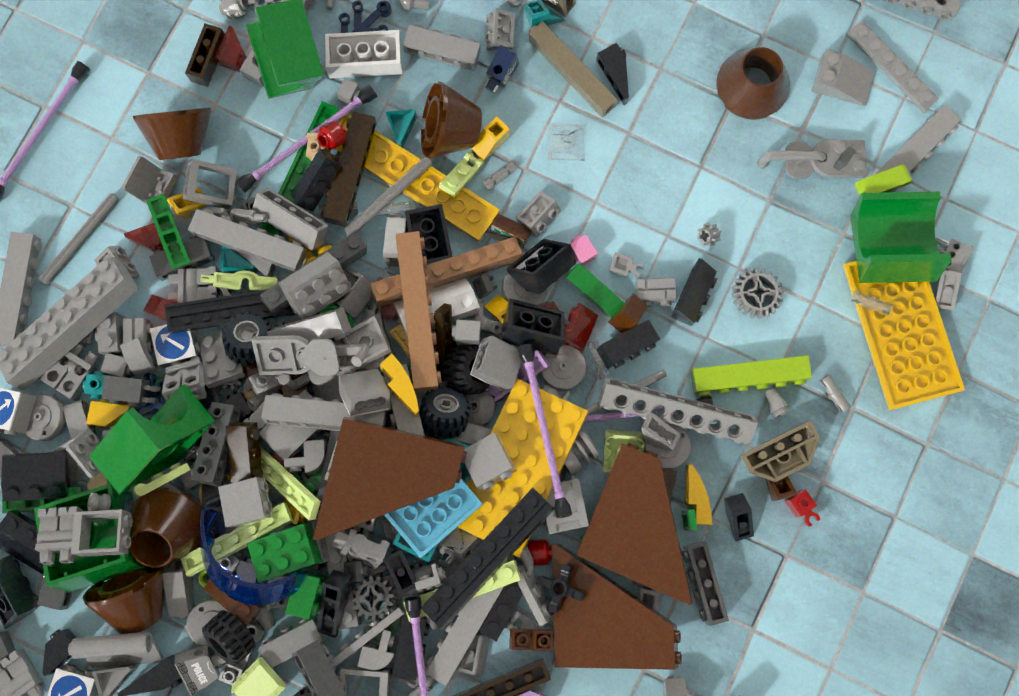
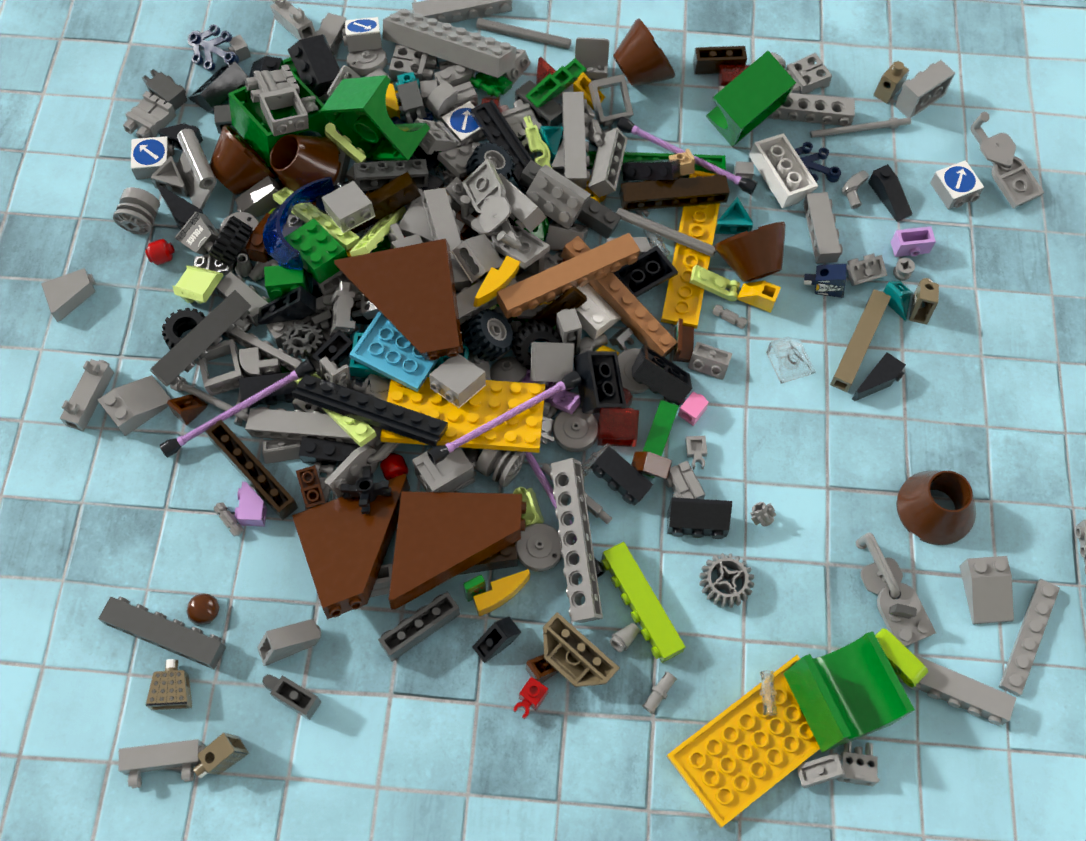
camera: 65 degrees right, 15 degrees down
(141, 297) = (492, 85): none -> green plate
(331, 135) = (695, 163): red head -> none
(659, 433) = (547, 527): light grey slope -> none

